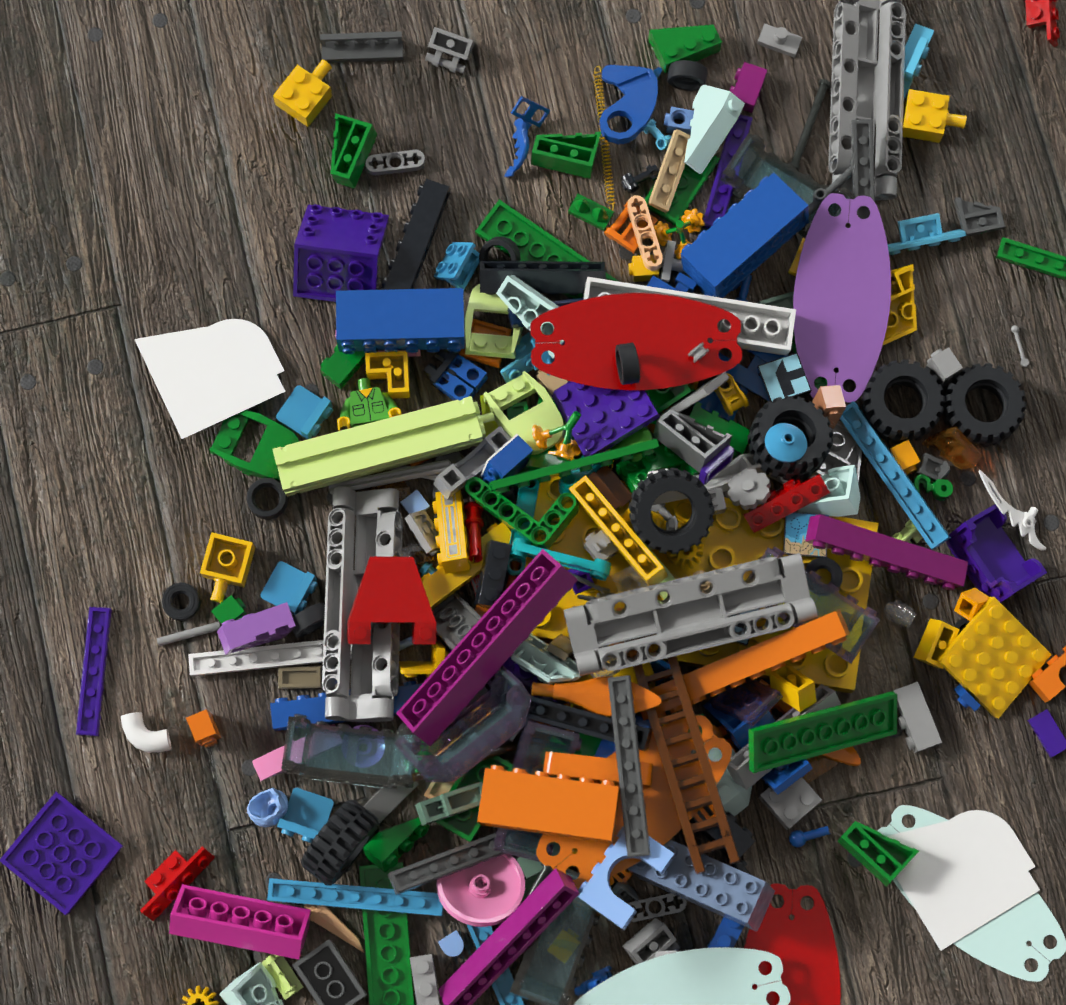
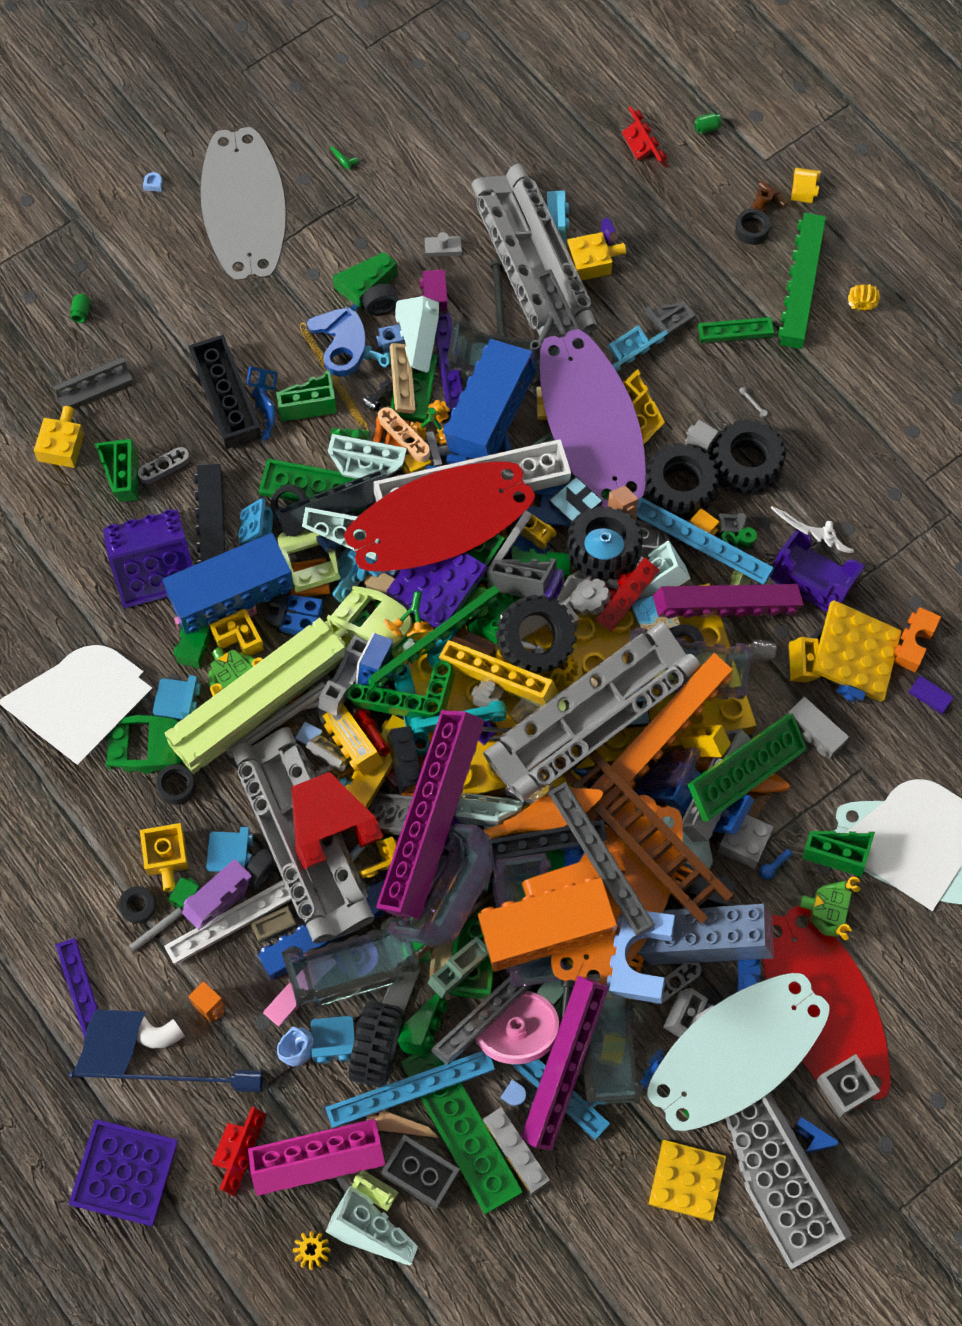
camera: 25 degrees left, 10 degrees down
(99, 729) = (112, 1042): none -> dark blue flag
(452, 44) = (167, 352): light grey brick -> none
(487, 110) = (225, 391): none -> black brick
(561, 647) = (494, 792): dark tan tile -> none
(594, 242) = (361, 457): none -> light aqua wedge
(627, 363) = (442, 532): black tyre -> none
(698, 352) = (496, 502): light grey bush -> none
(840, 904) = (830, 907): none -> bright green torso
(955, 98) = (608, 231): none -> dark purple tile
(955, 448) = (741, 499): clear orange slope -> none
(970, 603) = (816, 615): light orange brick -> none

